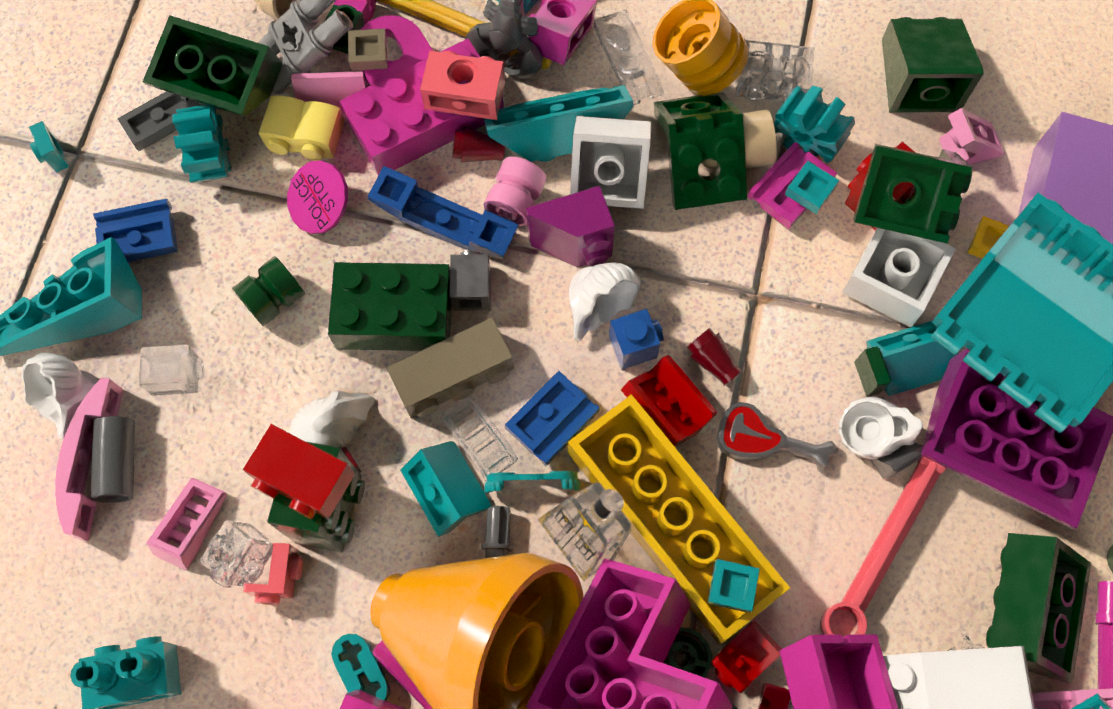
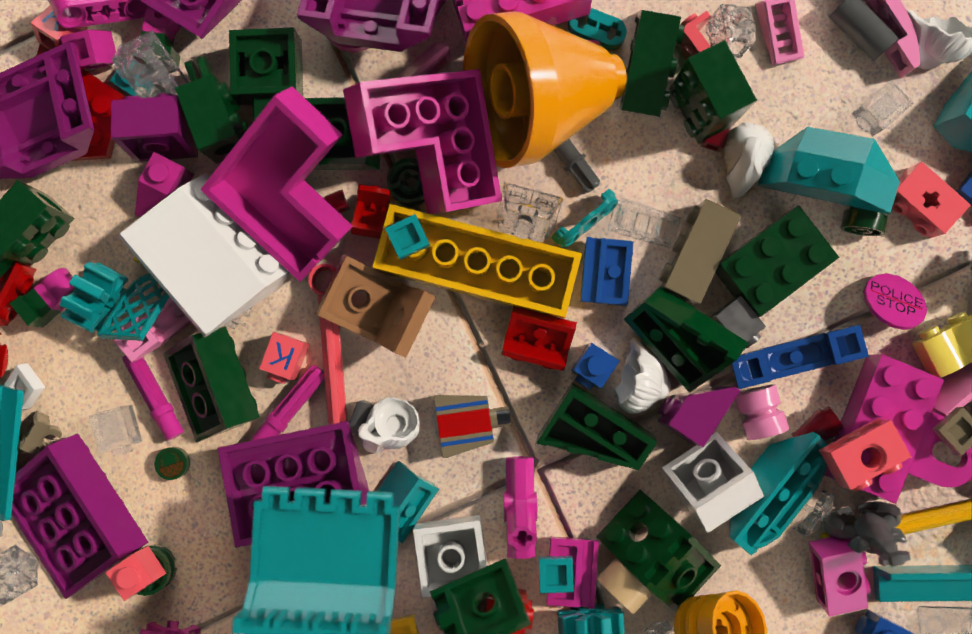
camera: 145 degrees right, 15 degrees up
(210, 259) = (928, 201): none -> coral brick
(267, 344) = (833, 169): none -> teal wedge
(298, 472) = (731, 77): red brick -> none
(339, 585) = (651, 62): none -> dark green wedge
(444, 486) = (638, 175): teal panel -> none
(532, 299) = (684, 338): none -> dark green wedge
(536, 83) = (814, 519): none -> clear piece
(628, 55) = (769, 589): clear plate -> none
(678, 282) = (596, 430): none -> dark green wedge
(713, 355) = (534, 397): dark red cone -> none
(749, 437) = (470, 359): flat silver piece -> none
(796, 378) = (467, 422): none -> torso
(799, 269) = (520, 507): none -> dark pink piece
(800, 534) = (390, 312): none -> medium nougat bracket
(872, 371) = (419, 467): dark green tile -> none
(942, 576) = (283, 357): none -> coral brick
(984, 521) = (278, 419): none -> dark pink axle

